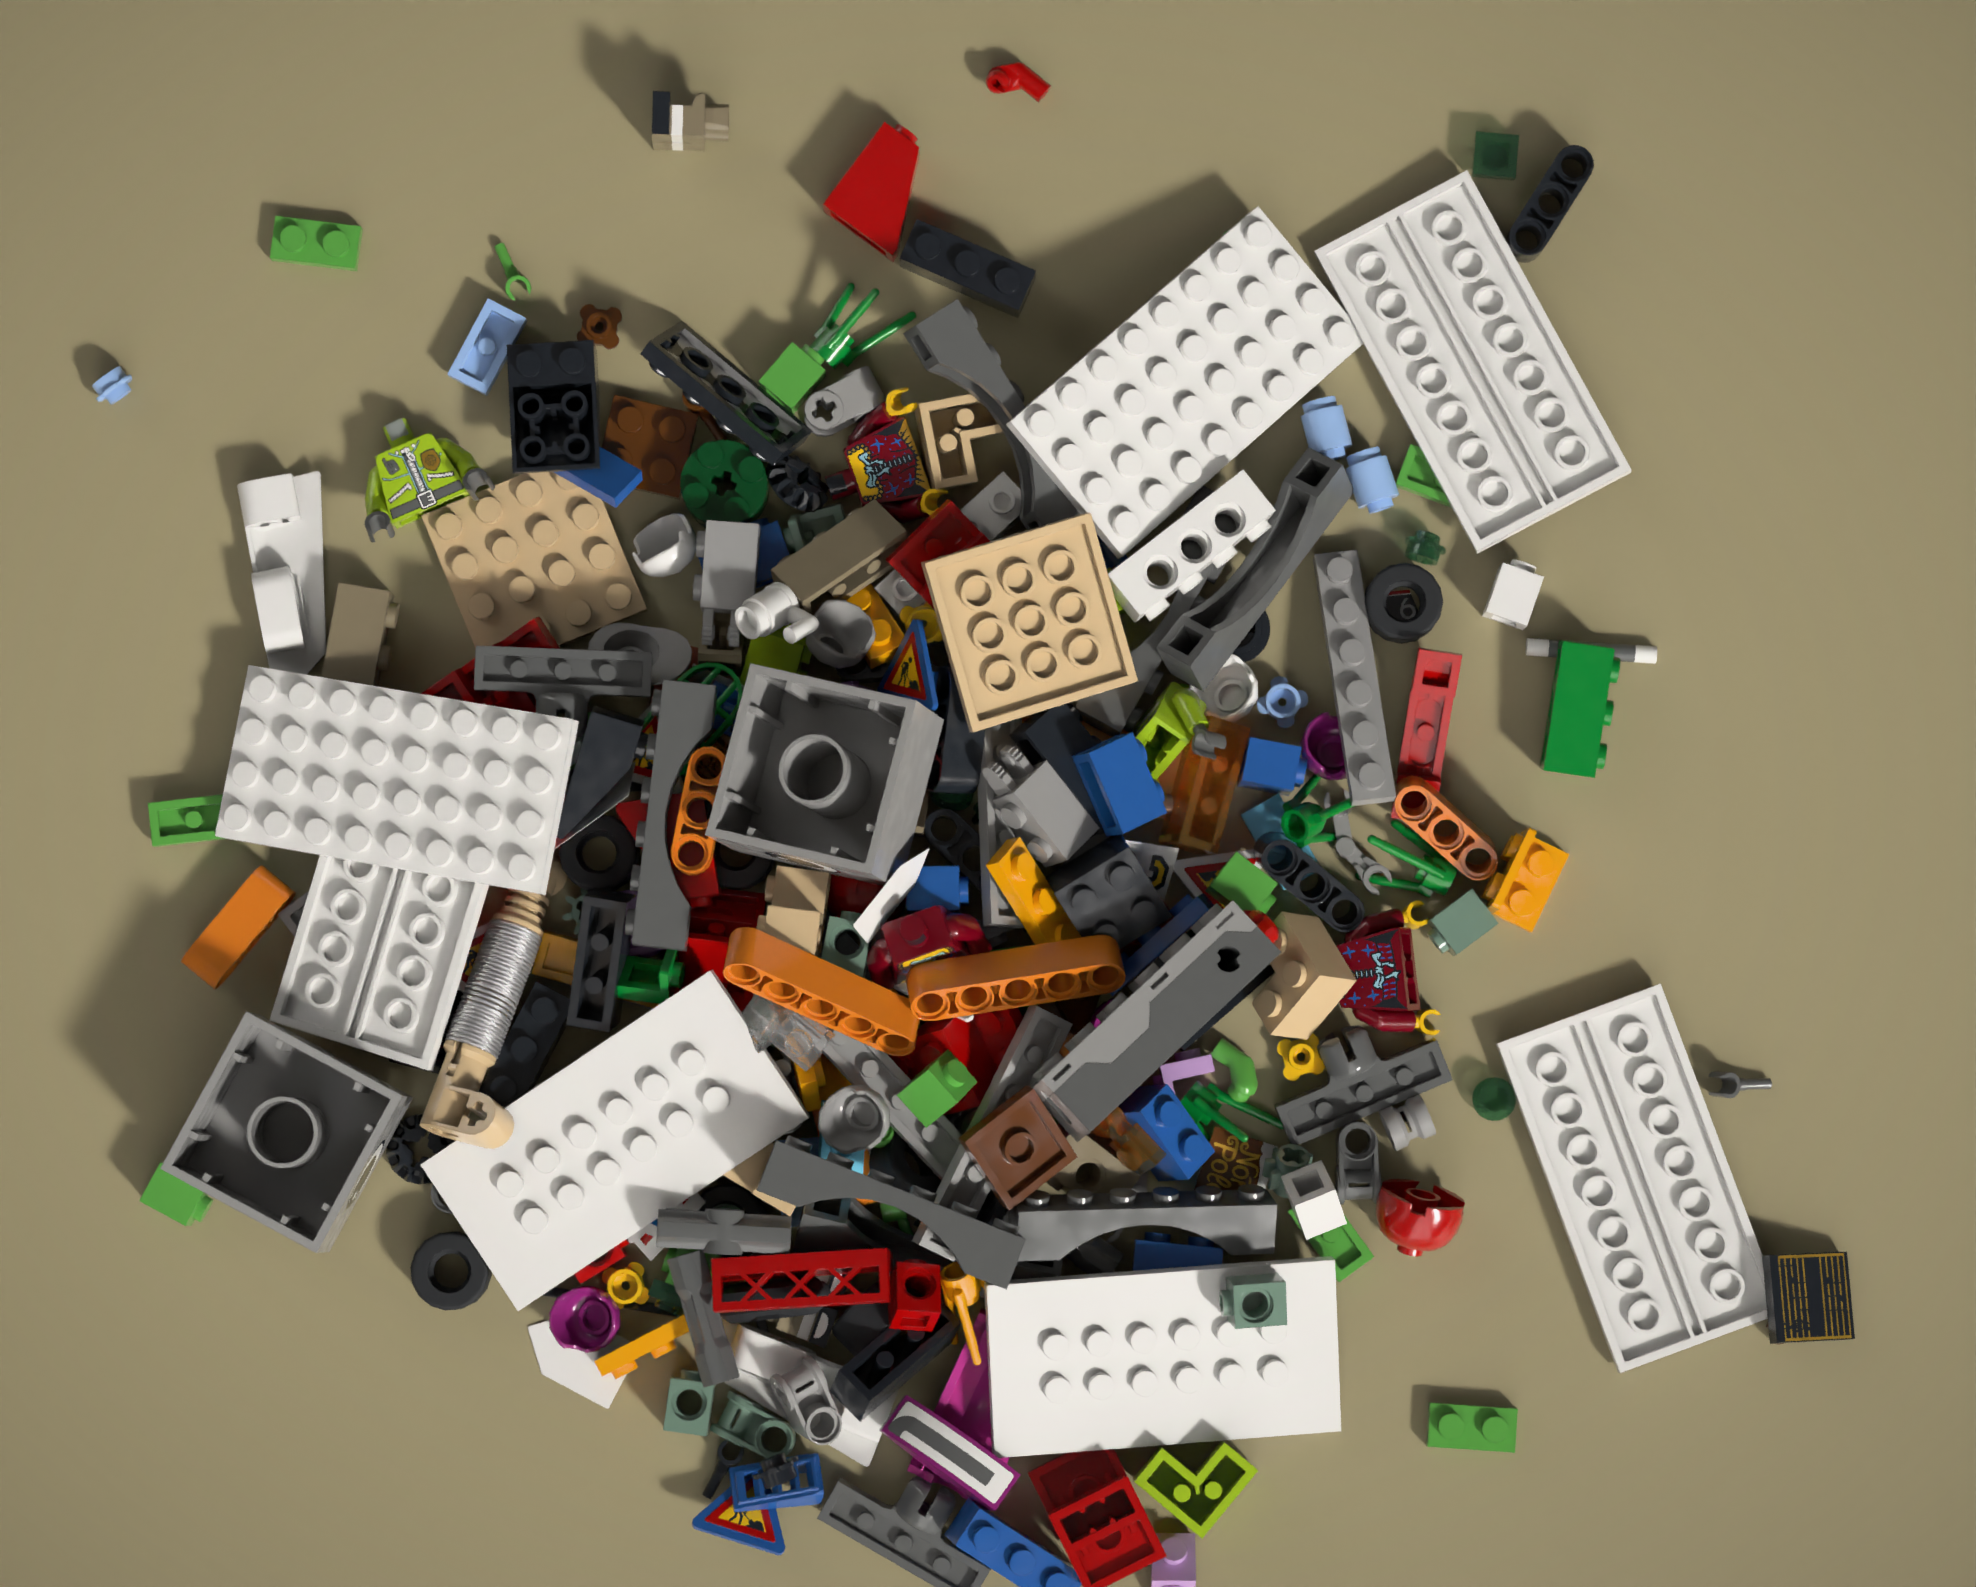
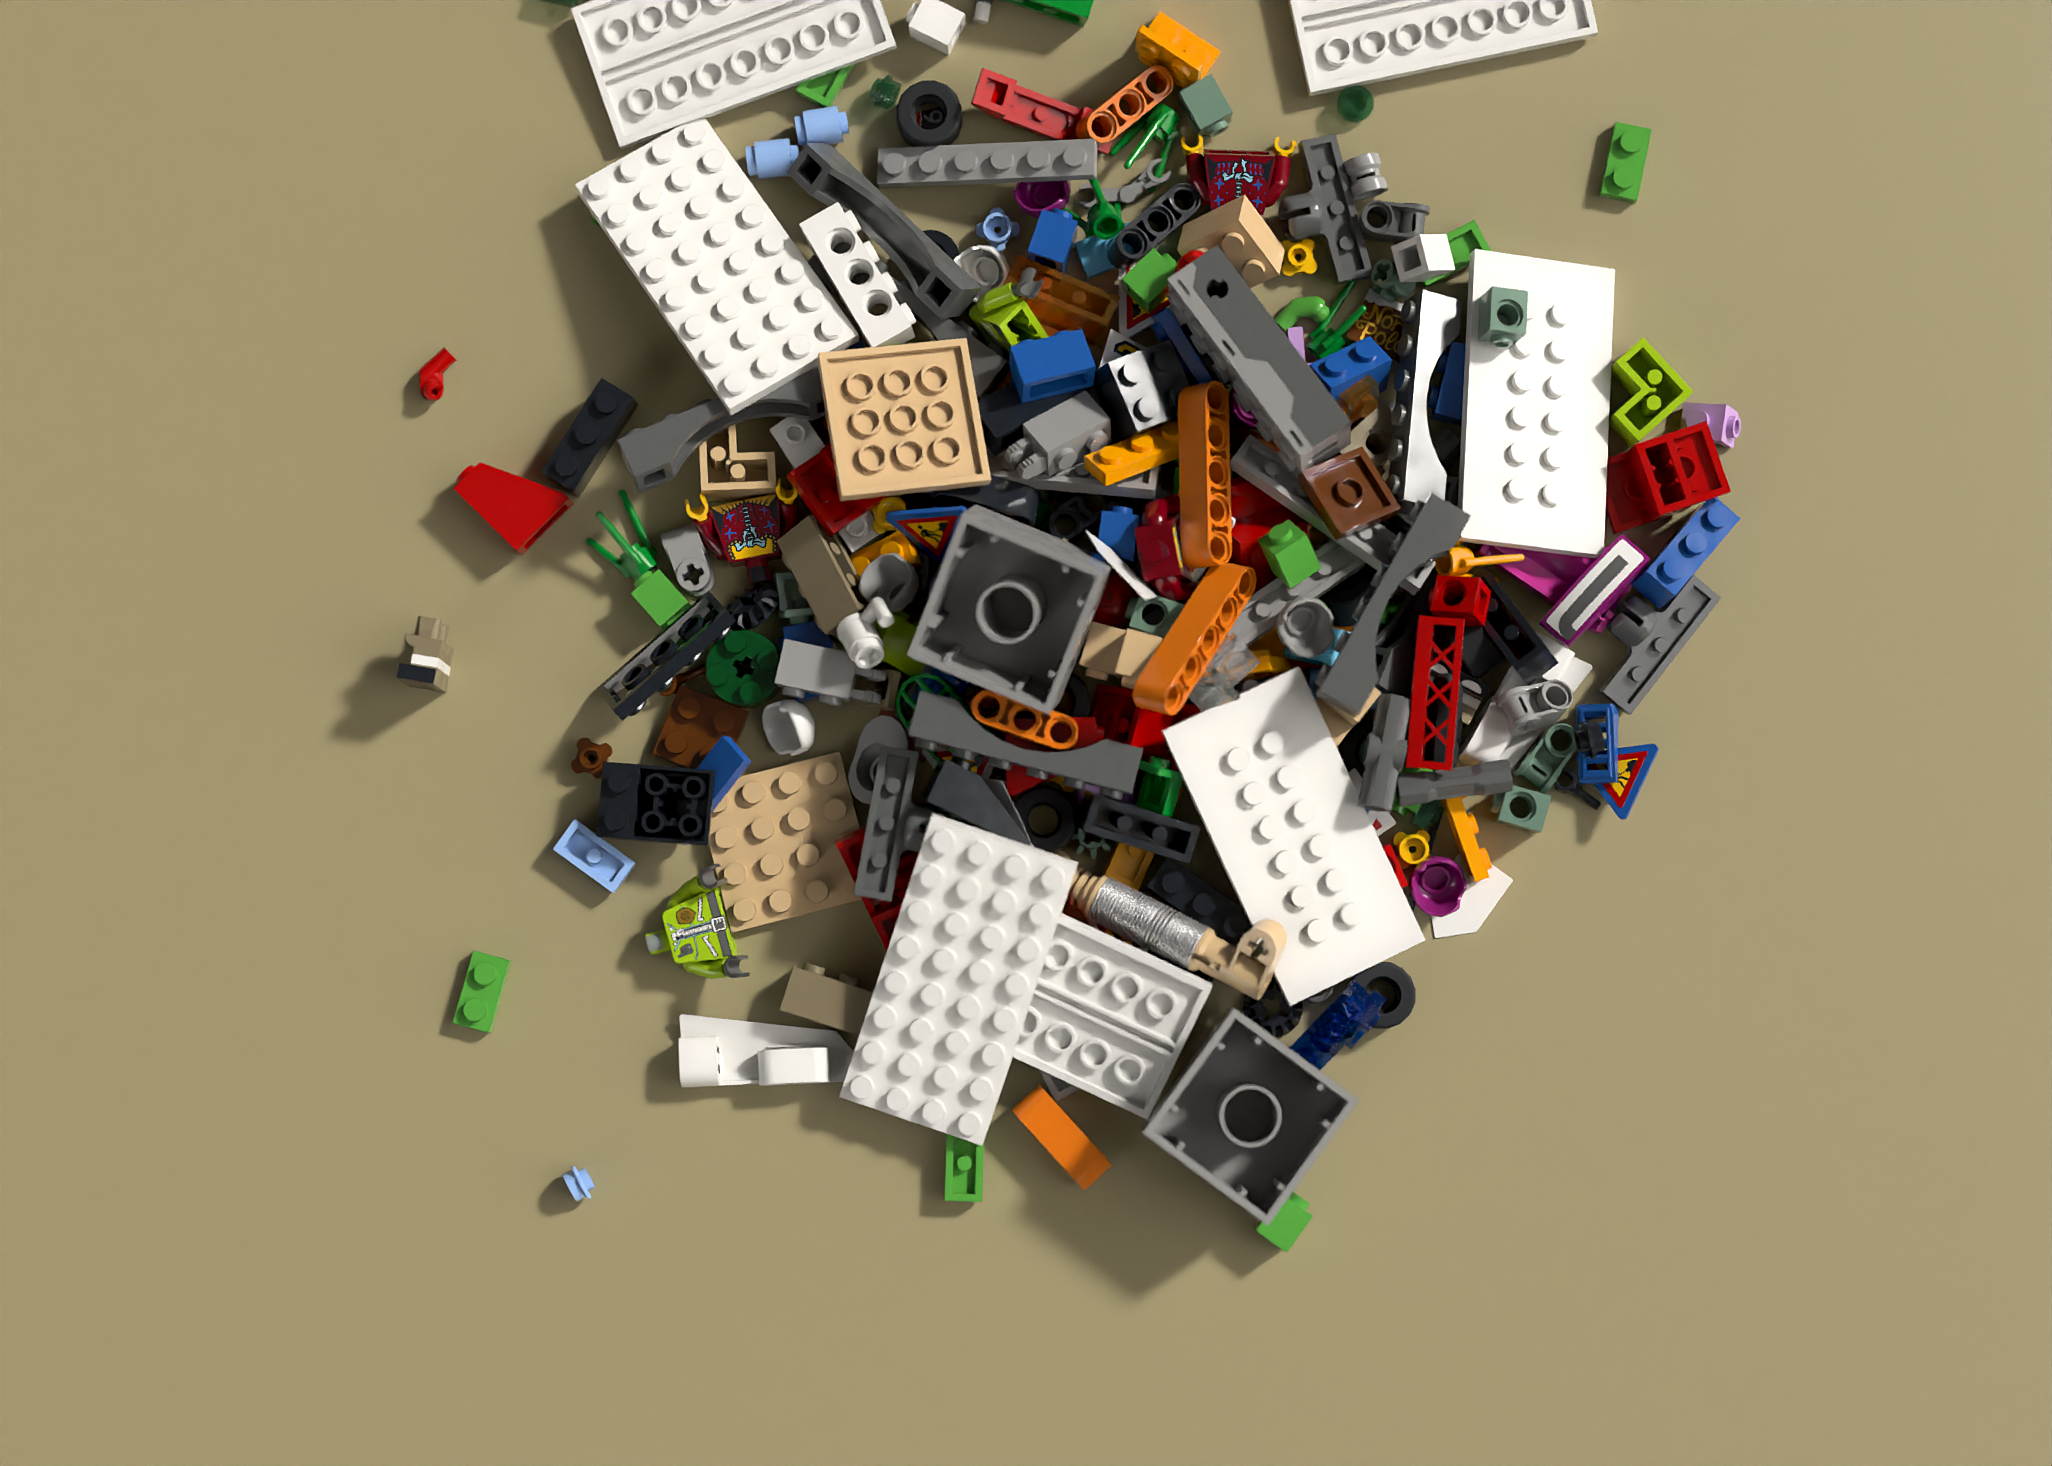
camera: 75 degrees left, 0 degrees up
(407, 1225) = (1339, 1025): none -> clear blue bracket
(510, 270) = (532, 827): bright green hand -> none
(1417, 1217) = (1447, 177): red cylinder -> none

